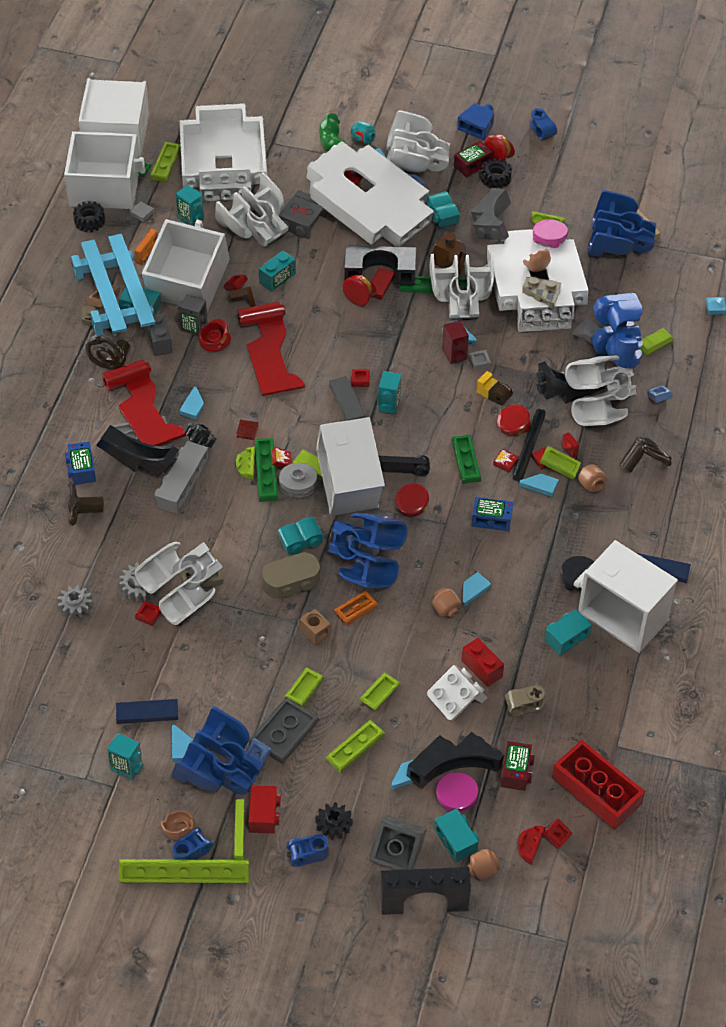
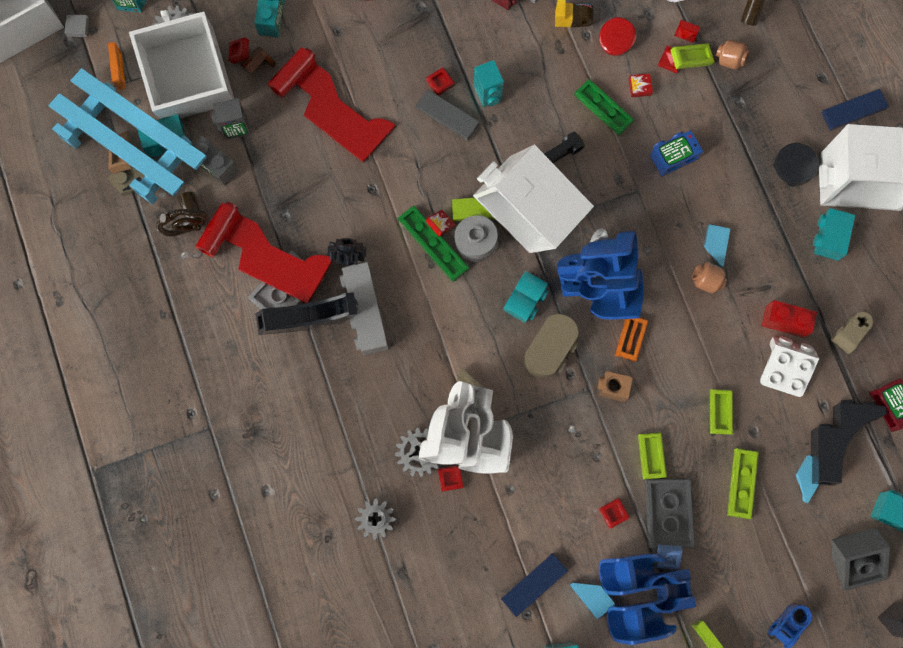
camera: 35 degrees left, 25 degrees up
(81, 463) = (255, 360): brick -> none
(82, 504) = (293, 406): dark brown piece -> none
(89, 209) = (21, 58): black tyre -> none
(193, 405) = (308, 218): medium azure tile -> none
(214, 335) = (267, 126): red piece -> none
(244, 705) = (614, 513): none -> red tile
(245, 463) = (408, 249): lime tile -> none
(247, 429) = (380, 211): clear red tile -> none
(263, 808) = (721, 612): red brick -> none
(341, 821) = (782, 582): black gear -> none
(412, 499) = (596, 186): red piece -> none
(457, 791) = (866, 468): dark pink tile -> none
(529, 445) = (648, 55): black axle -> none
(541, 484) = (690, 89): medium azure tile -> none

